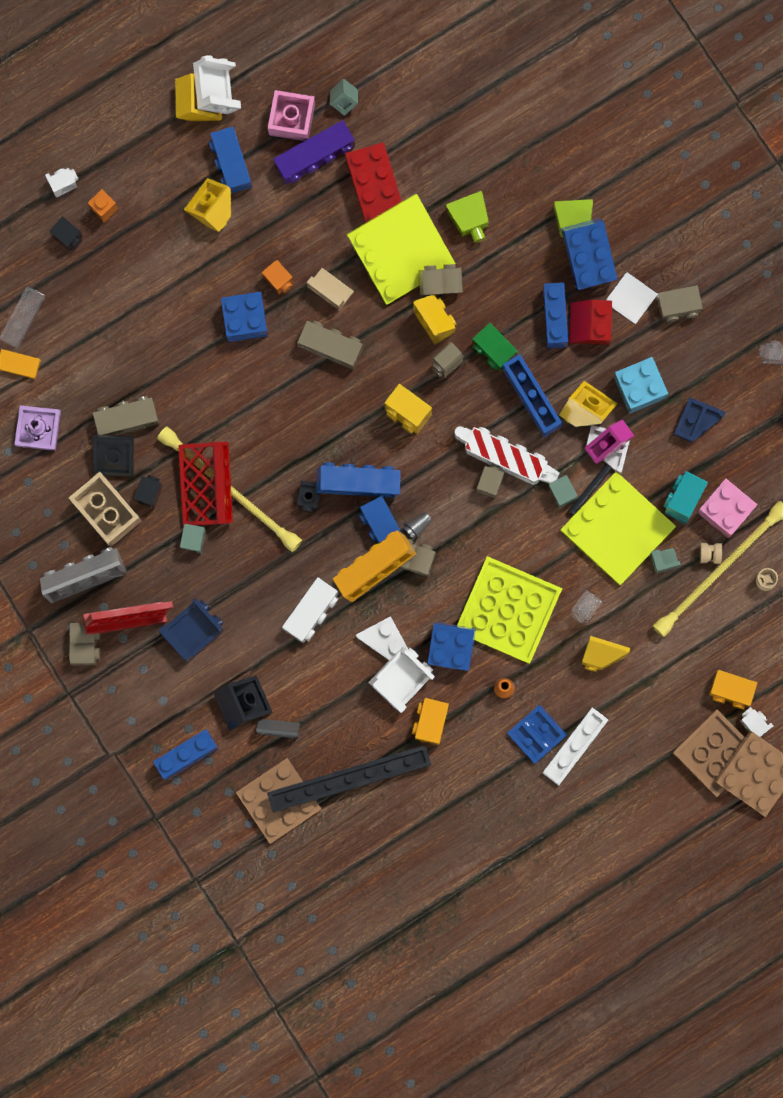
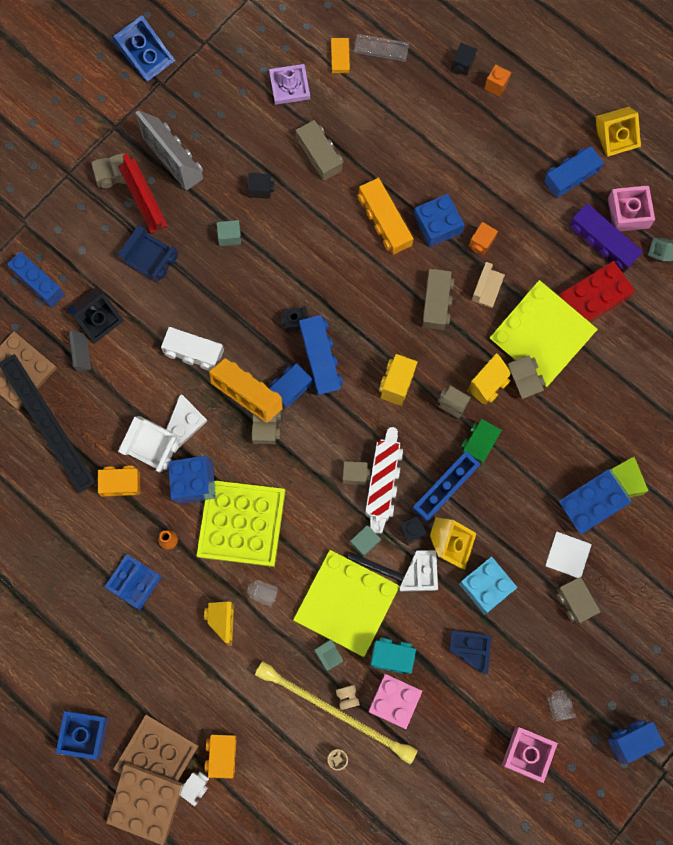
camera: 65 degrees right, 5 degrees down
(62, 181) = (507, 44): white brick -> none
(105, 509) = (233, 153): tan brick -> none
(113, 455) = (283, 148): black tile -> none
(211, 205) = (528, 167): yellow slope -> none
(213, 85) = (635, 137): white panel -> none
(222, 370) = (385, 216): none -> light orange brick
(222, 485) = (283, 239): red fence -> none
(289, 539) = (252, 313): light yellow hose -> none
(415, 527) = (295, 419): flat silver cone -> none
(469, 215) = (595, 386): lime torso -> none
(555, 315) = (528, 488): blue brick -> none
(565, 442) = (412, 530): none -> black brick
(575, 746) = (130, 620): white tile -> none
(591, 322) = (532, 523): red slope -> none
(609, 441) = (424, 570): dark pink slope -> none
(676, 818) = (82, 735): none -> blue brick

